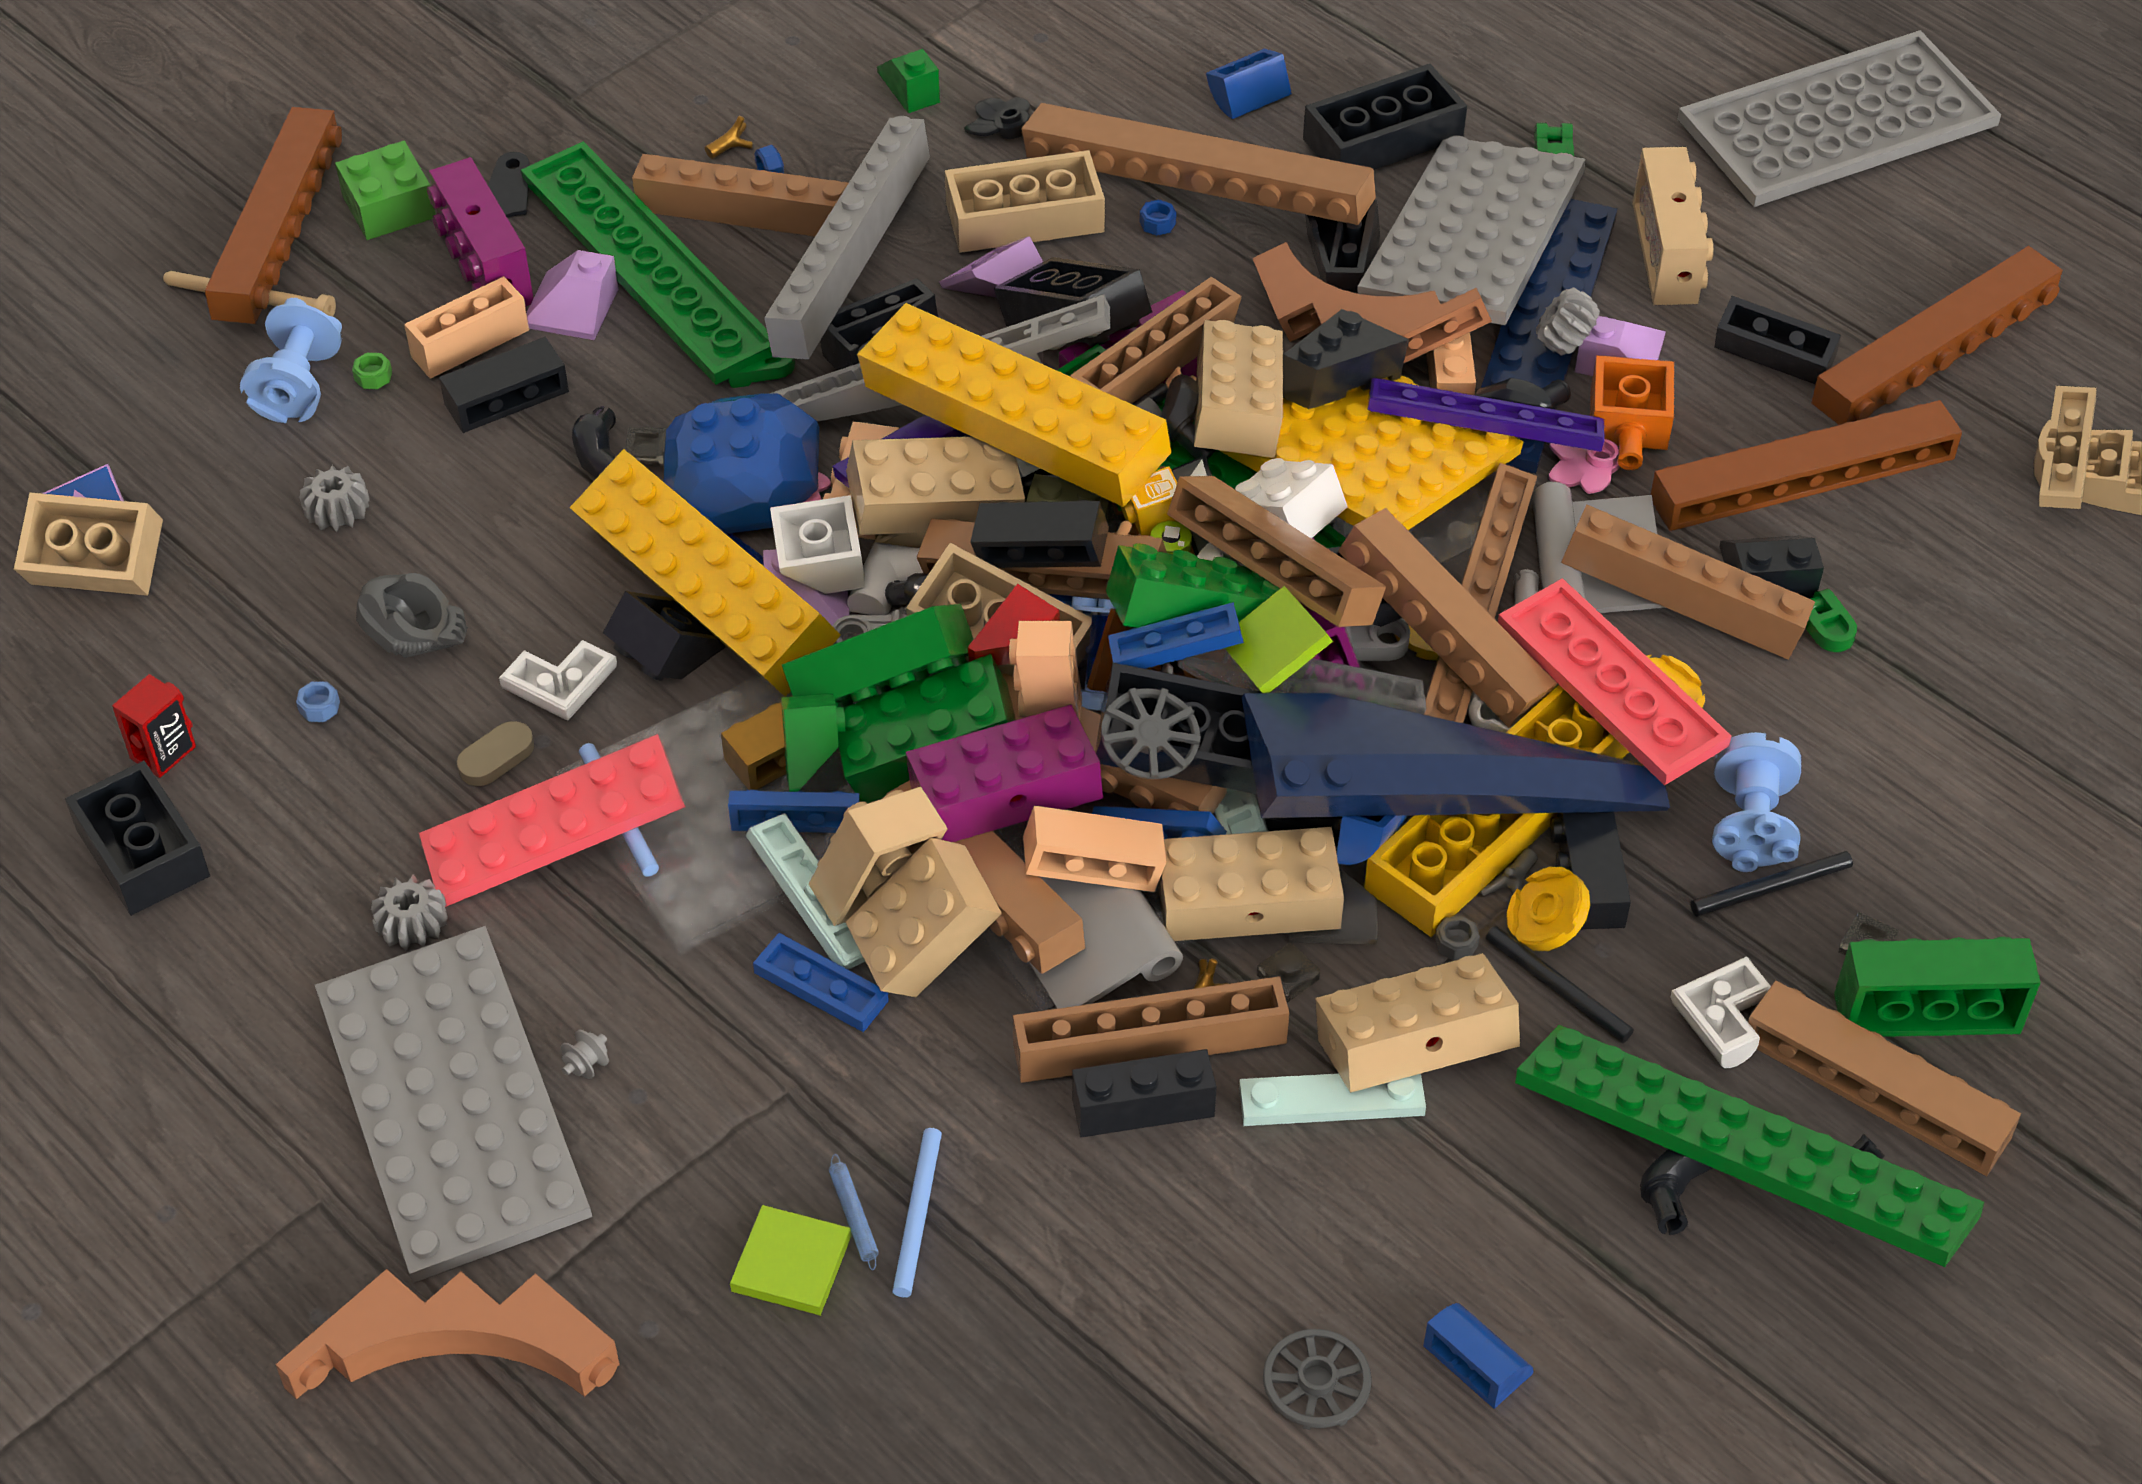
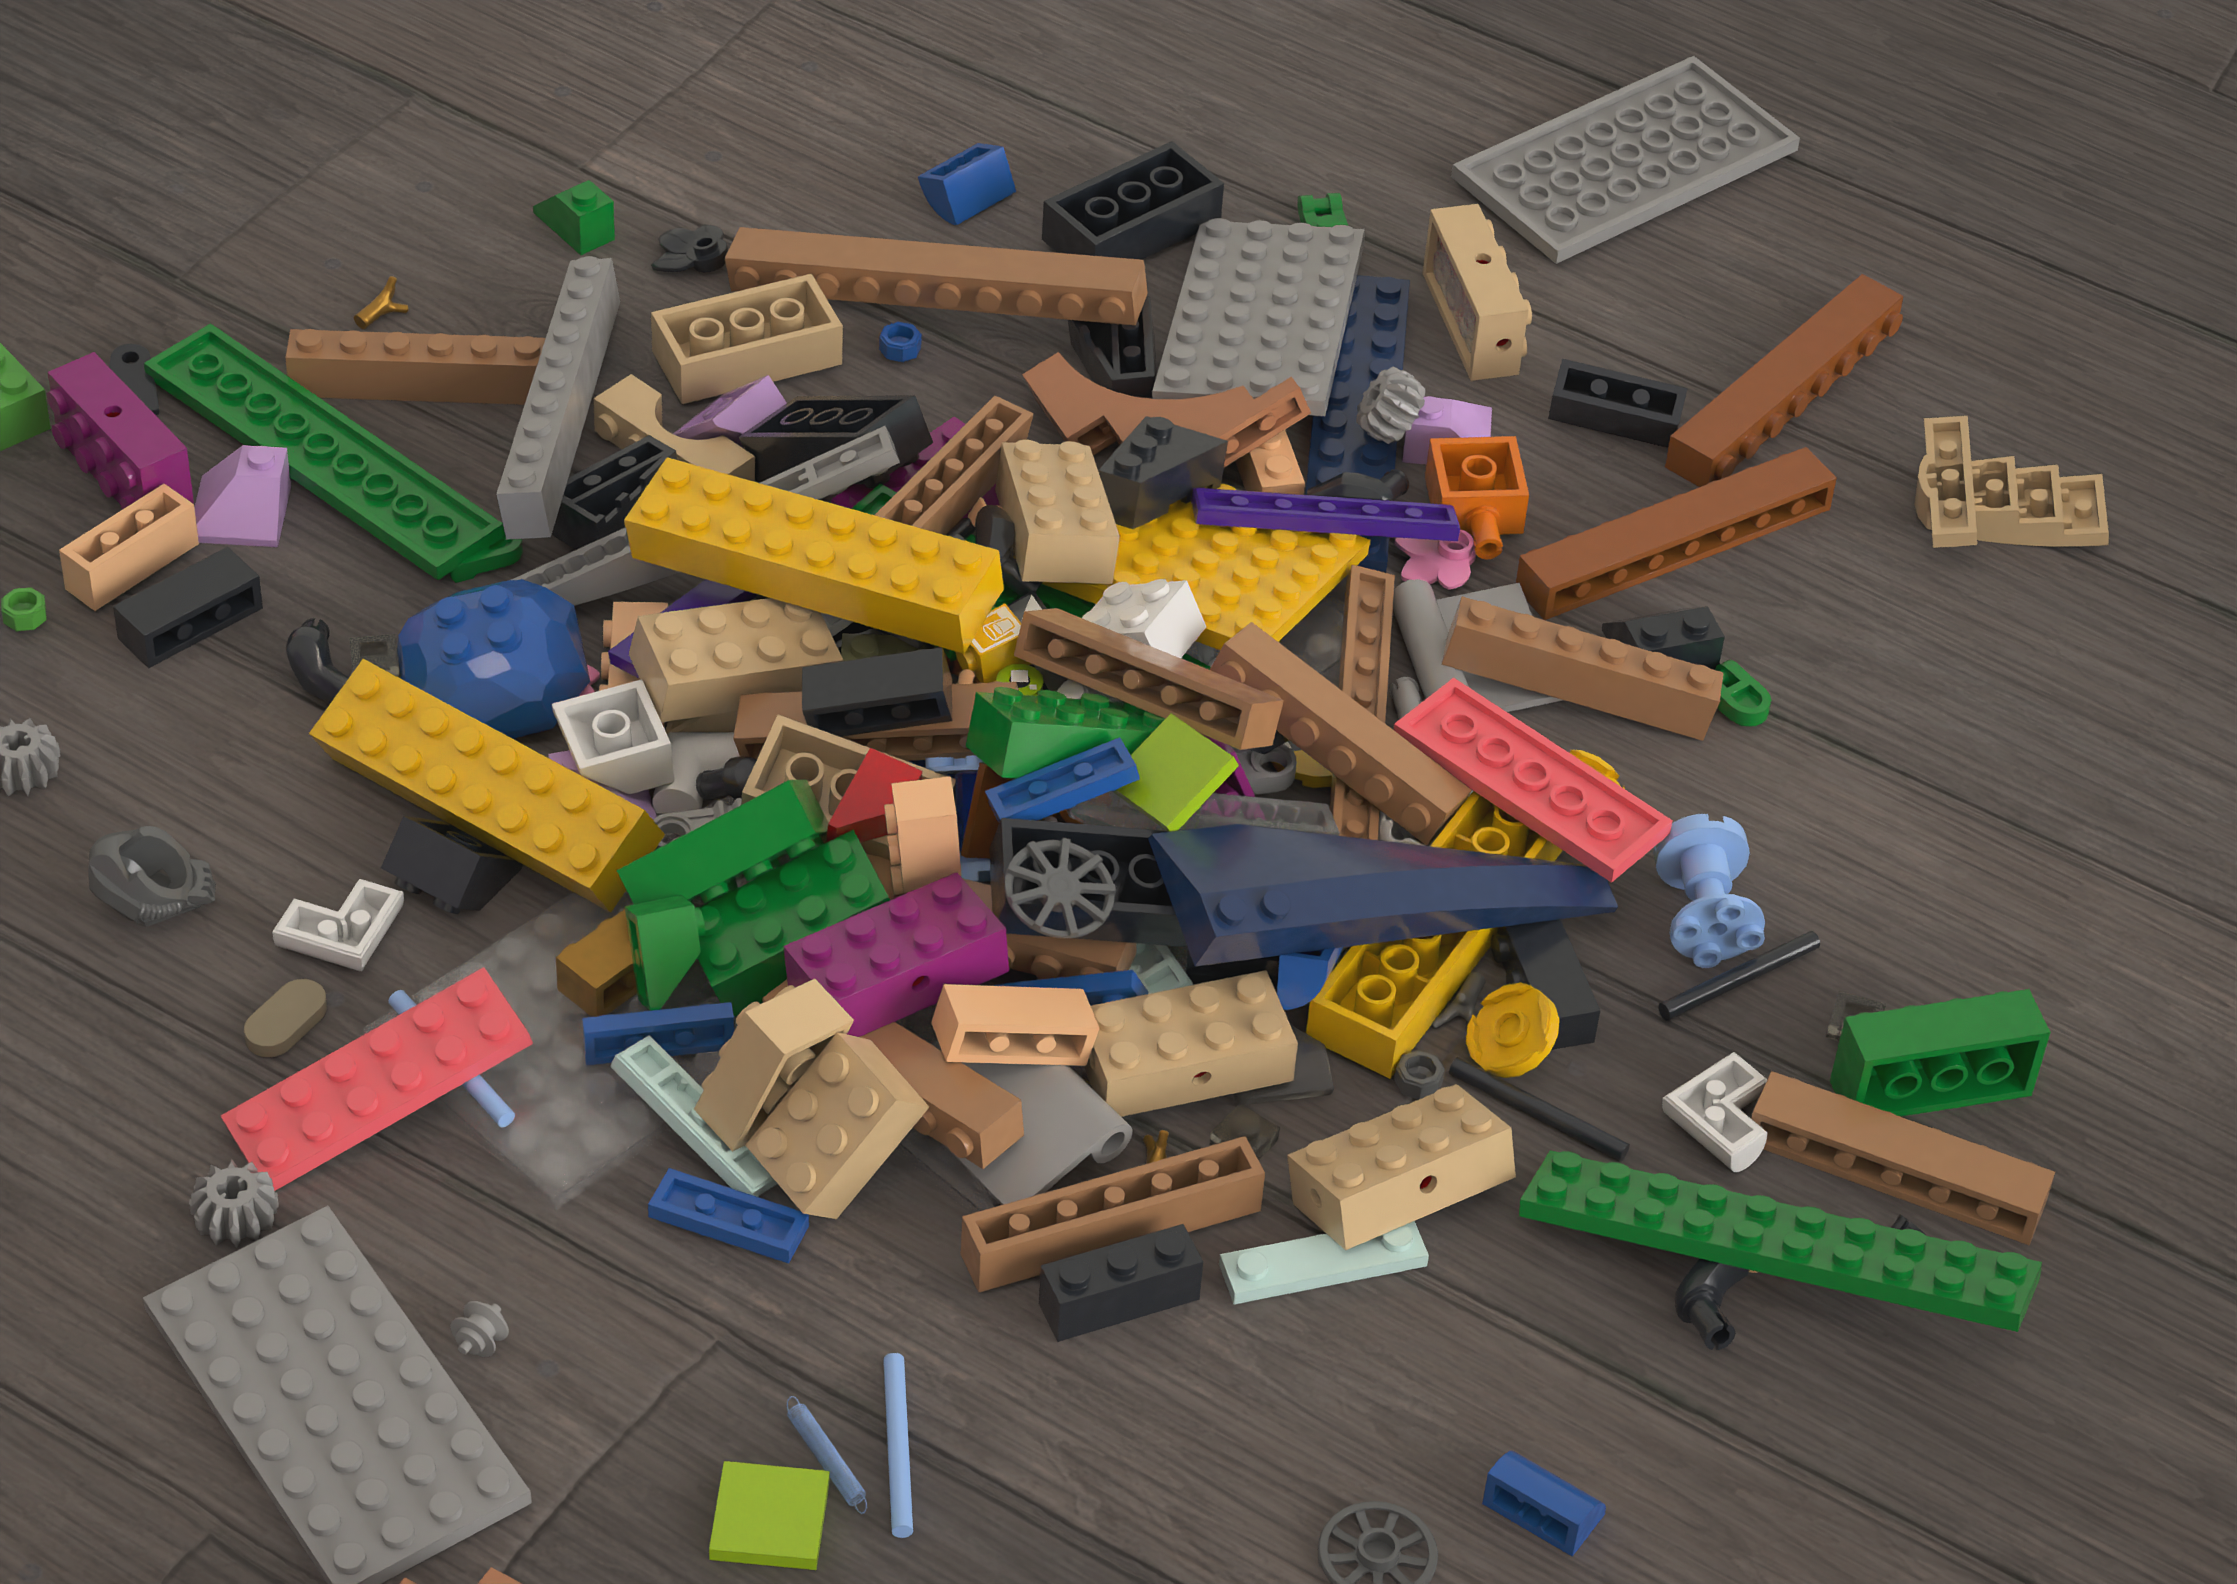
camera: 15 degrees left, 5 degrees down
(318, 701) = (60, 986): medium blue tile -> none
(769, 159) = (435, 321): blue tile -> none
(915, 255) = (635, 411): none -> tan arch

